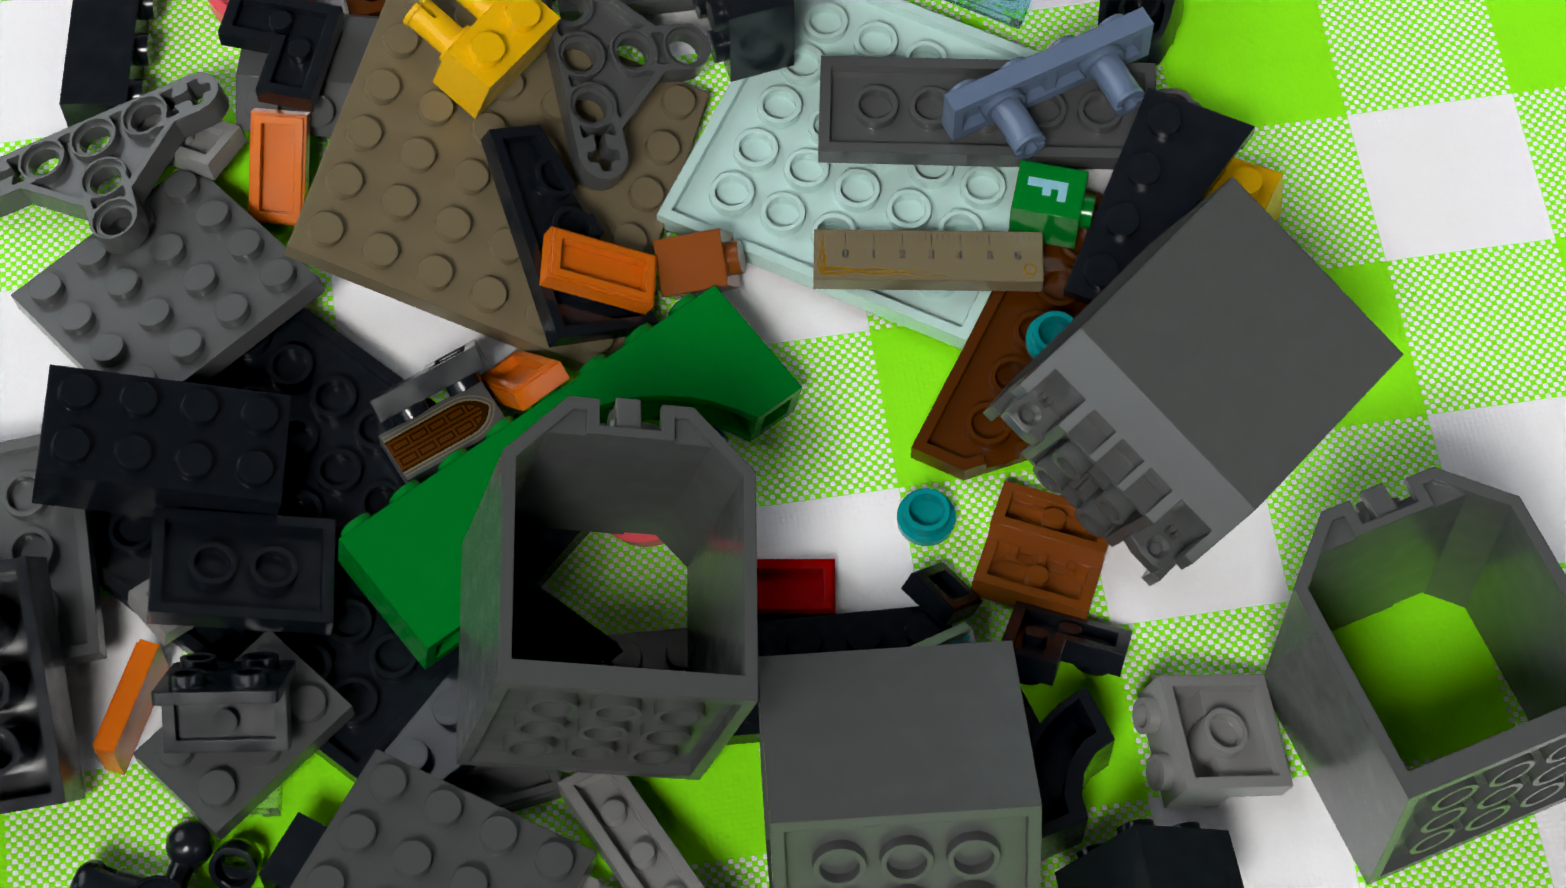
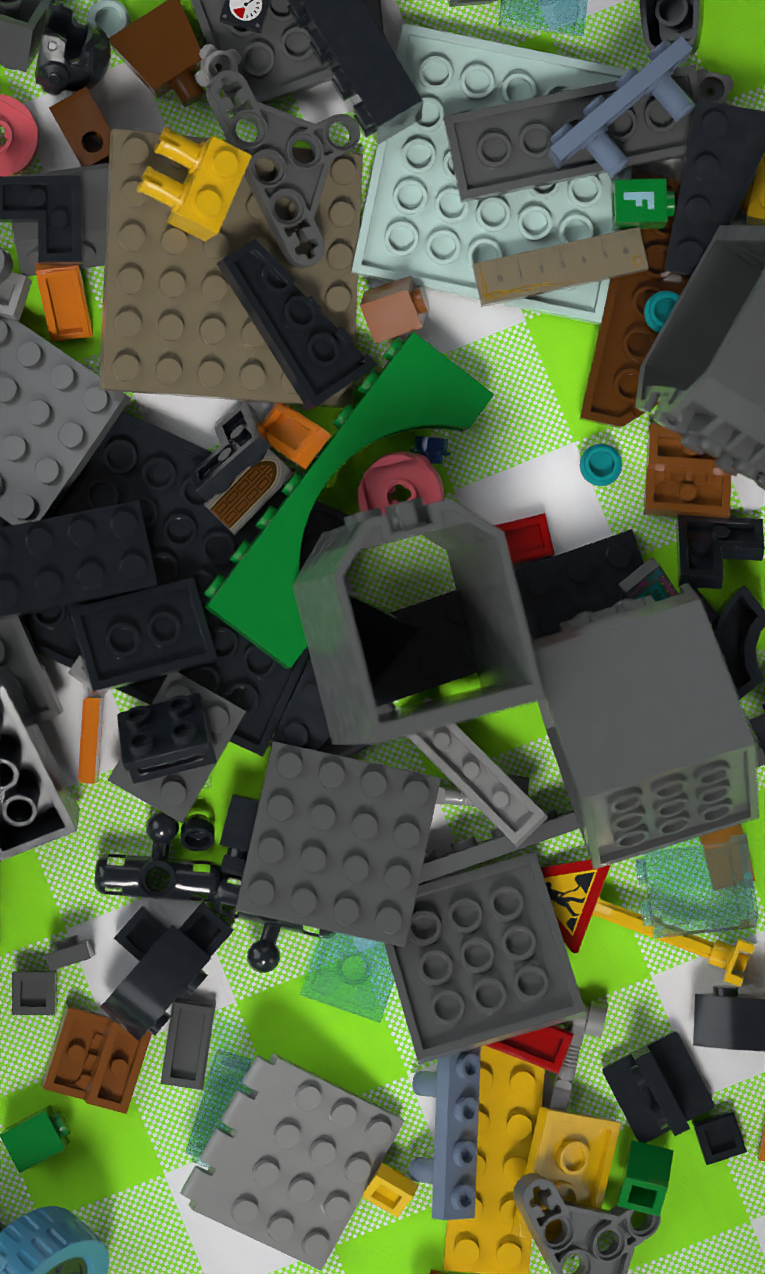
camera: 15 degrees left, 25 degrees up
(598, 270) = (328, 343): orange tile -> none
(942, 594) = (626, 524): black tile -> none

